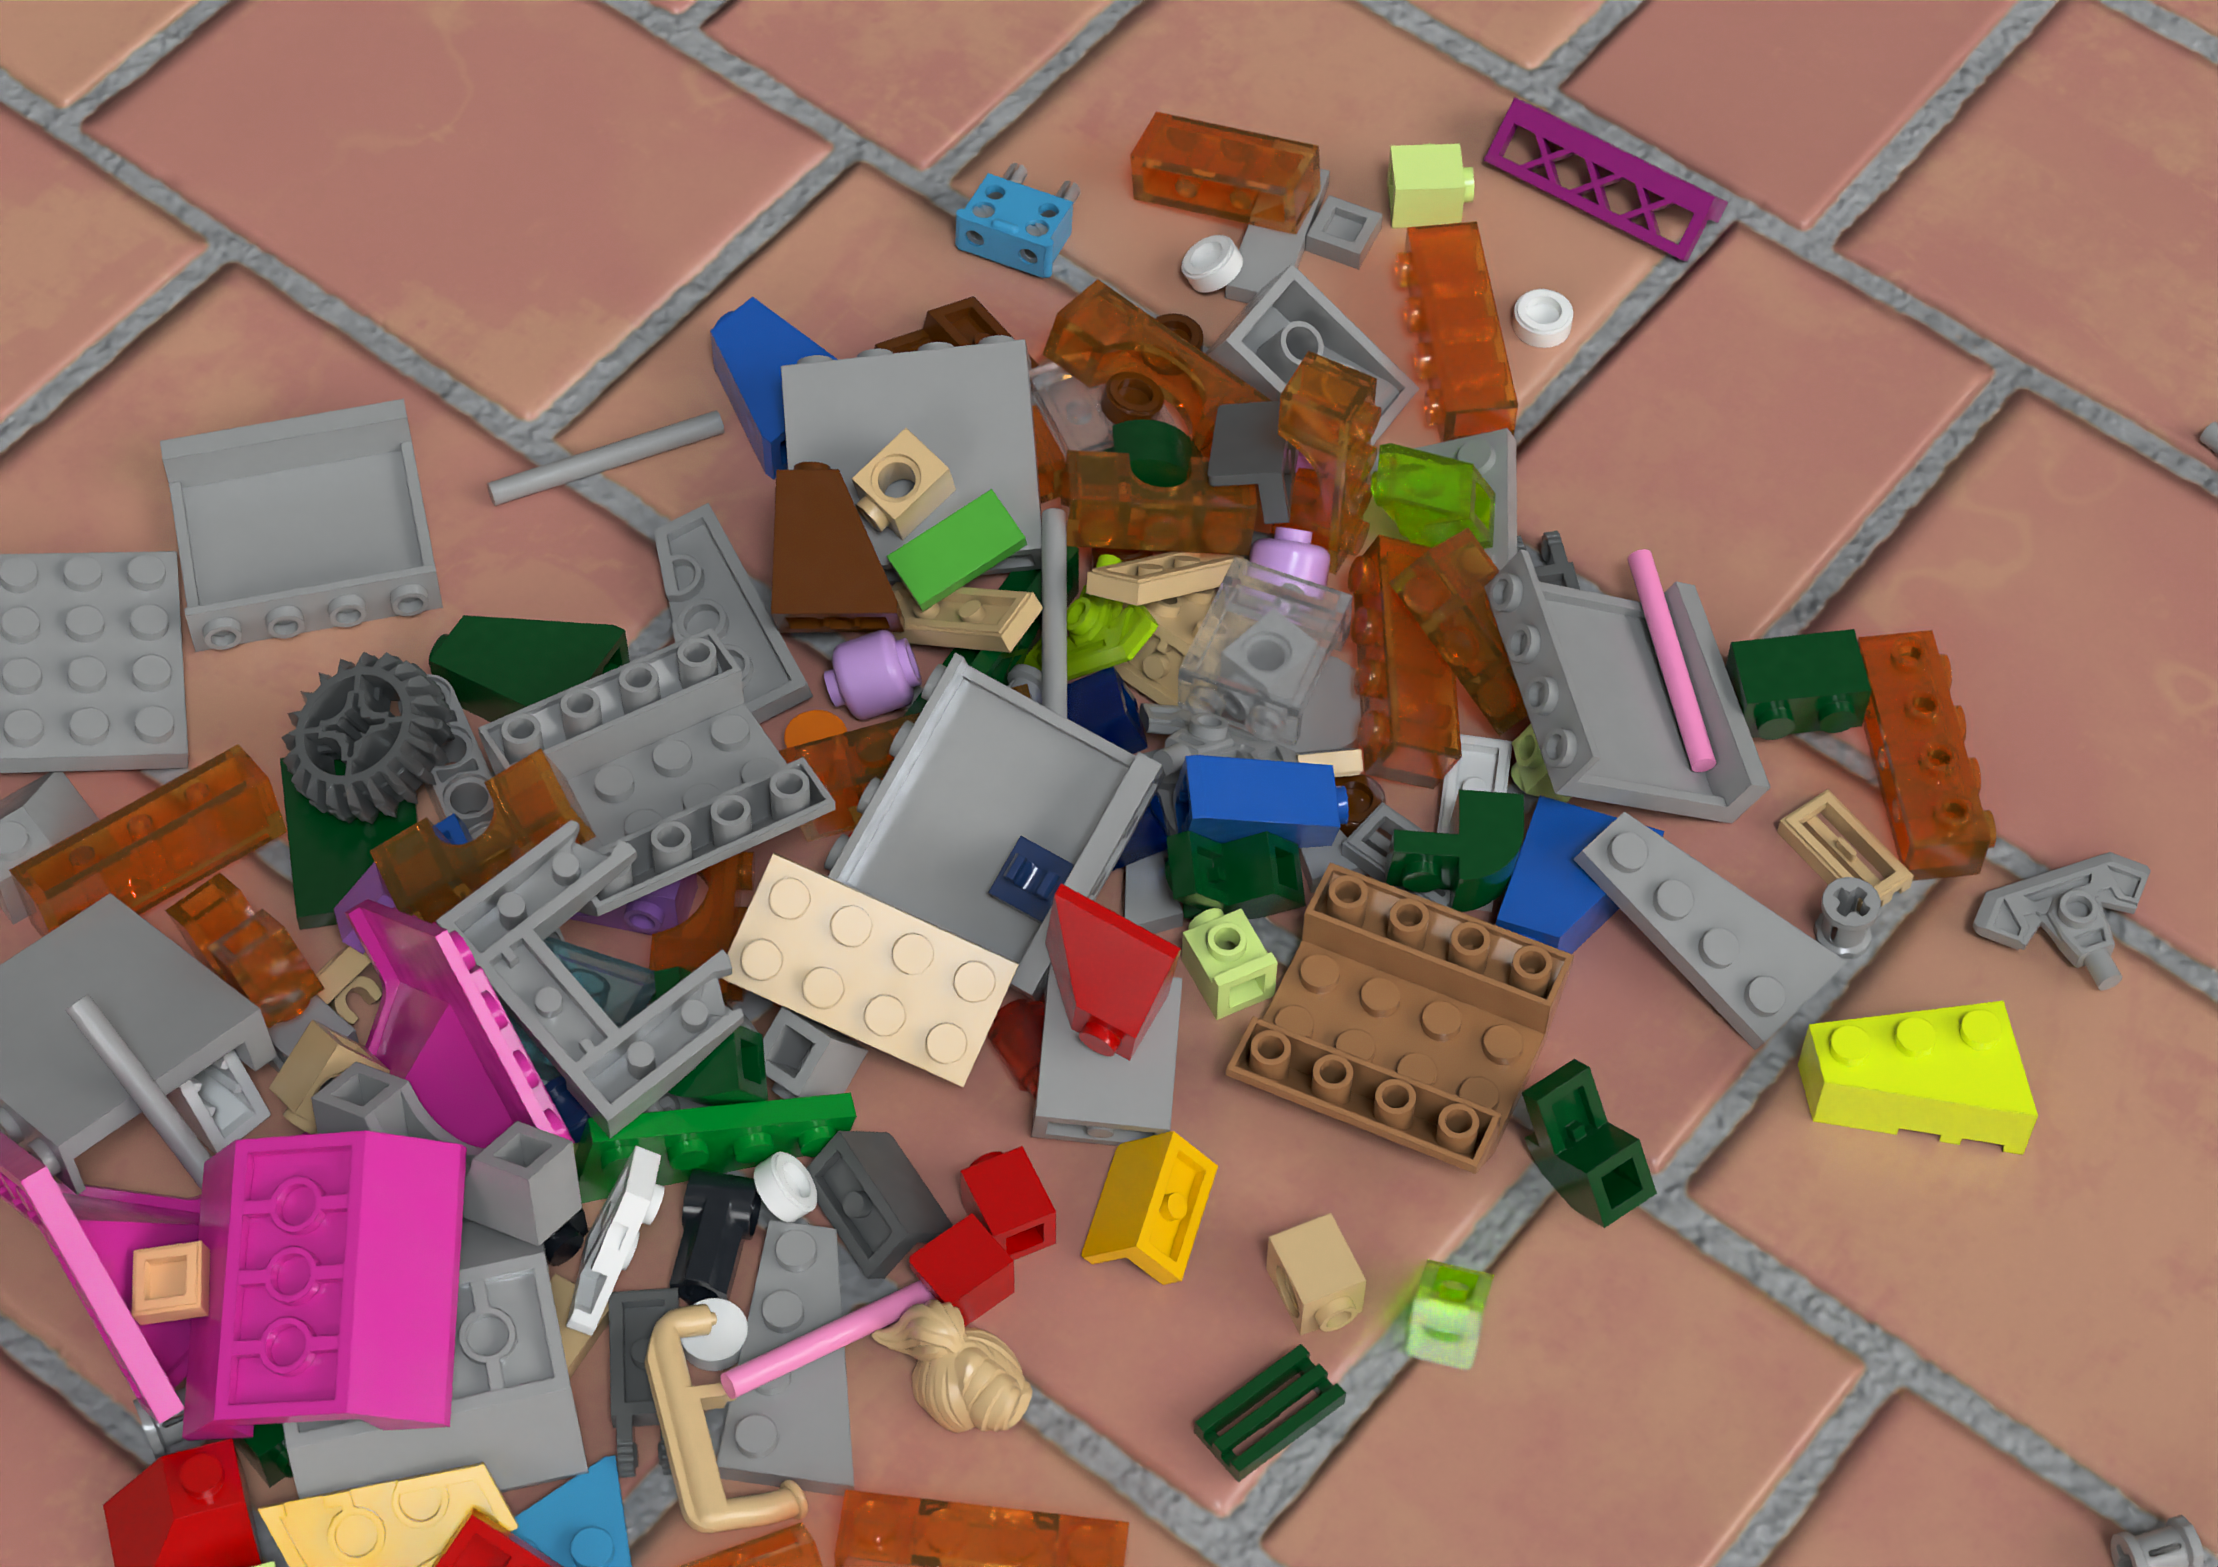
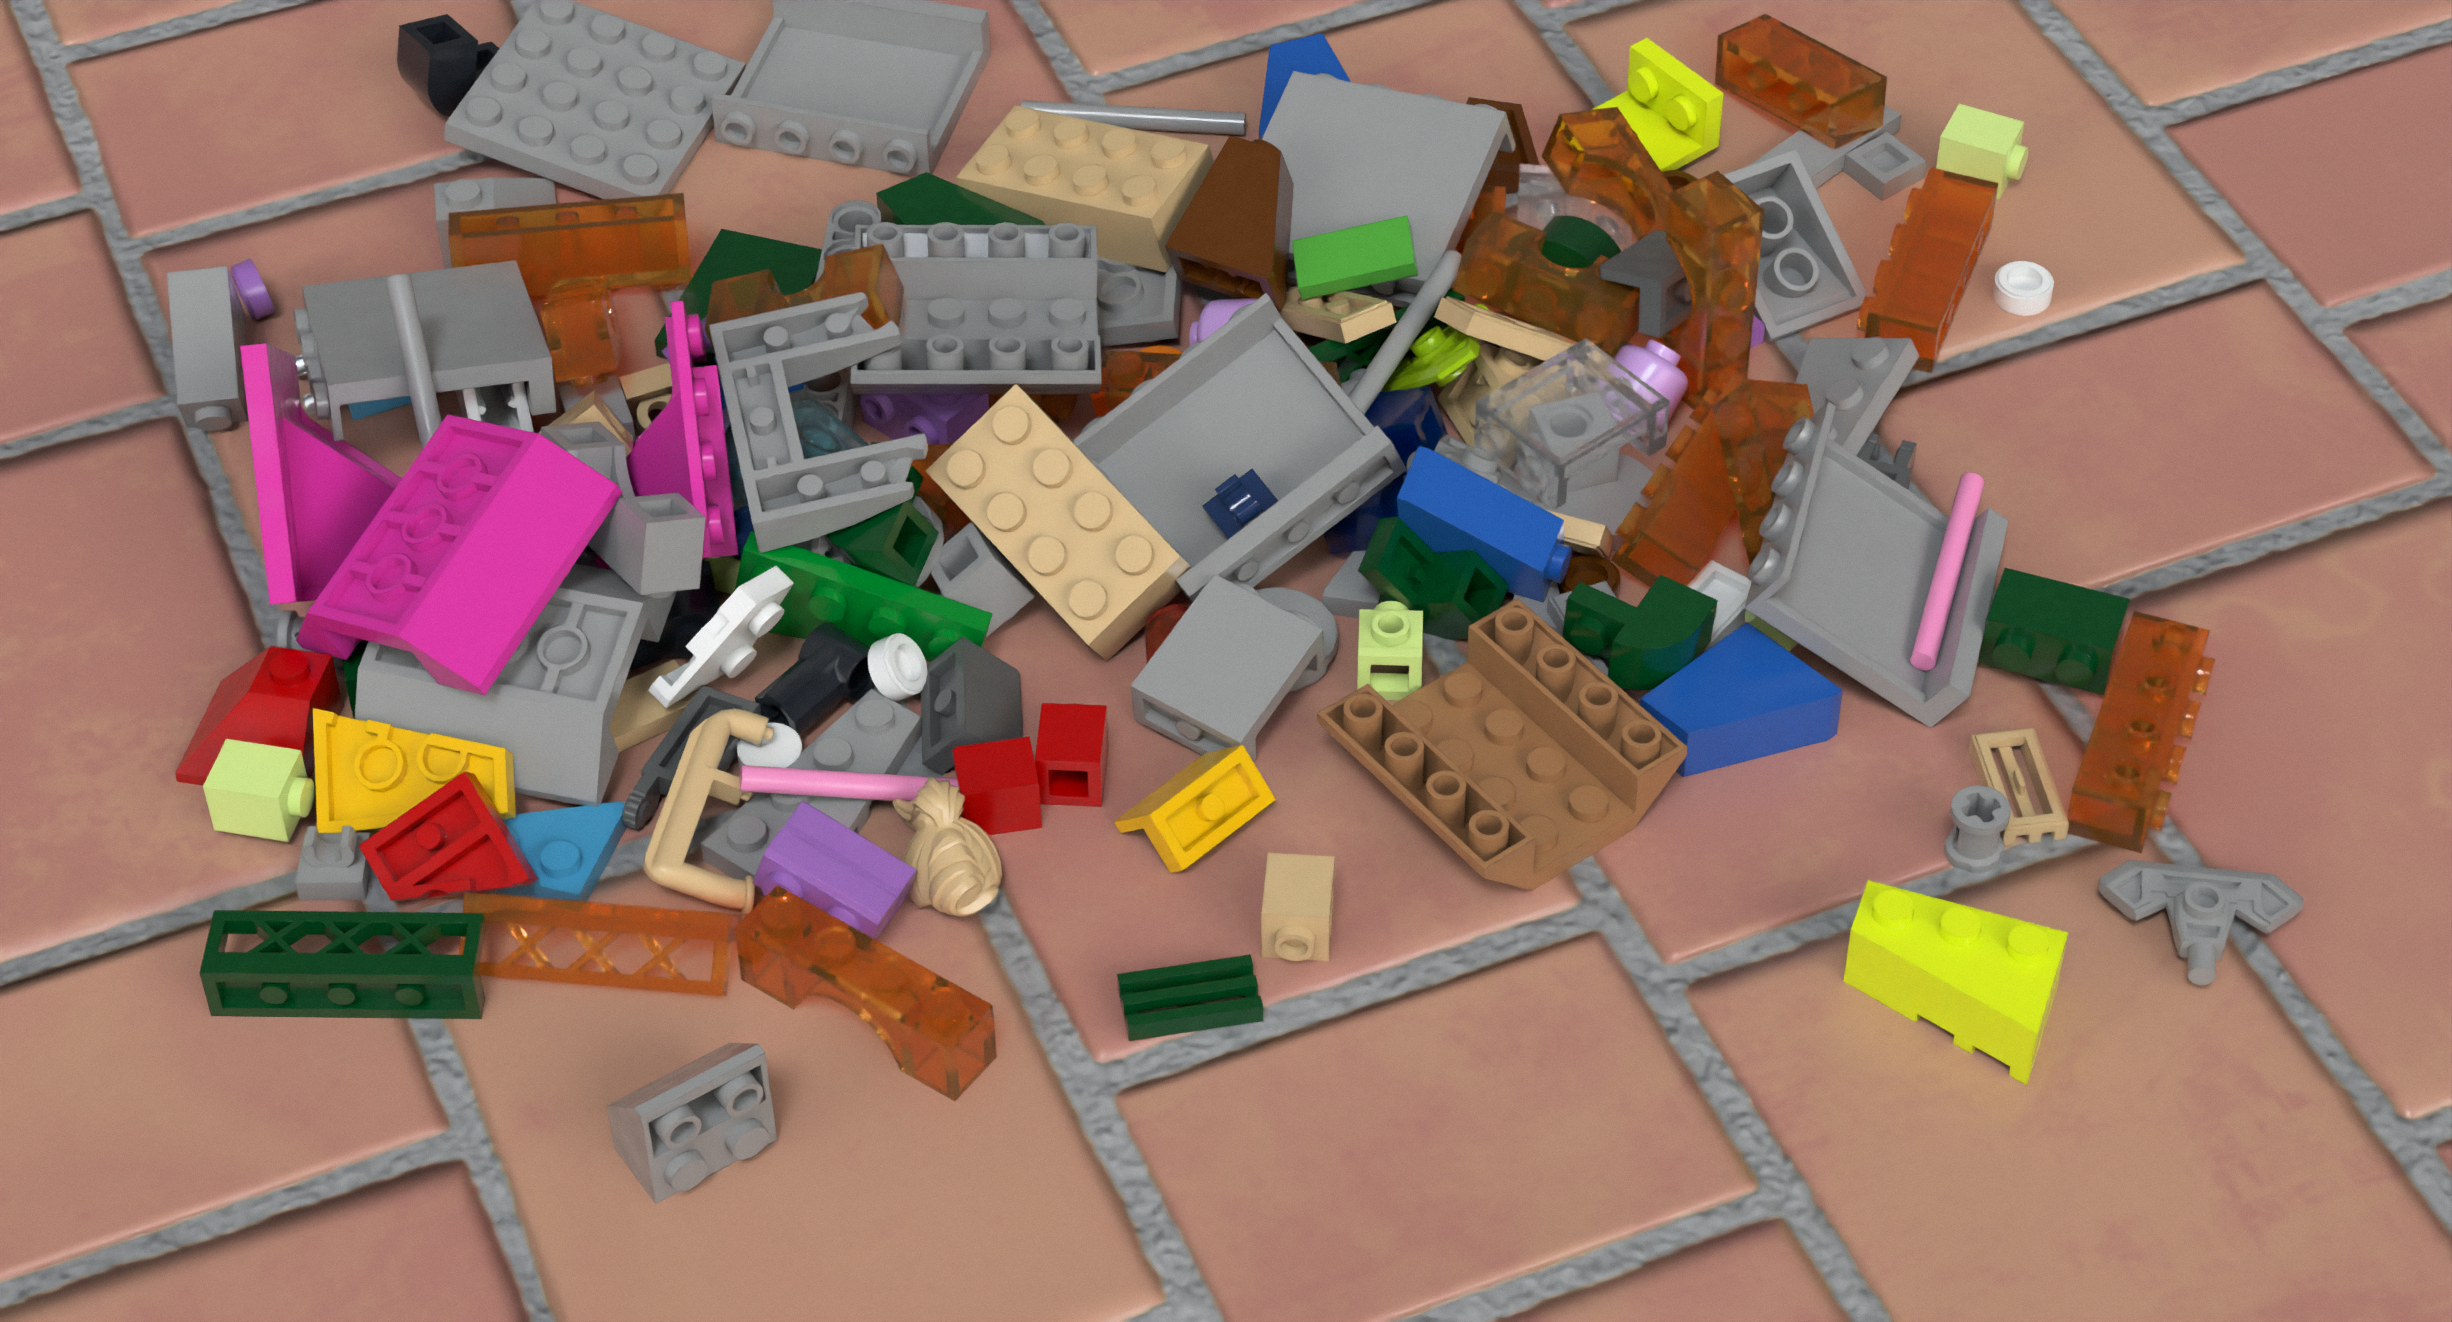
camera: 30 degrees right, 10 degrees down
(170, 1283) = (343, 509): light nougat tile -> none
(382, 752) = (786, 220): dark grey gear -> none
(643, 562) = (1092, 175): none -> tan brick
(879, 1446) = (835, 871): none -> medium lavender brick
(909, 460) = (1333, 187): tan brick -> none
(1016, 222) = (1586, 60): dark azure piece -> none
(1107, 972) = (1246, 586): red slope -> none
(1112, 243) = (1669, 107): none -> neon yellow bracket
(1131, 398) = (1601, 209): reddish brown tile -> none
(1212, 263) = (1745, 146): white tile -> none
(1433, 496) = (1797, 348): clear neon green slope -> none
(1448, 1314) = (1394, 984): clear neon green slope -> none
(1581, 1153) = (1599, 898): dark green brick -> none
(1622, 163) = (2170, 191): magenta fence -> none
(1716, 935) = (1837, 785): light grey wing -> none

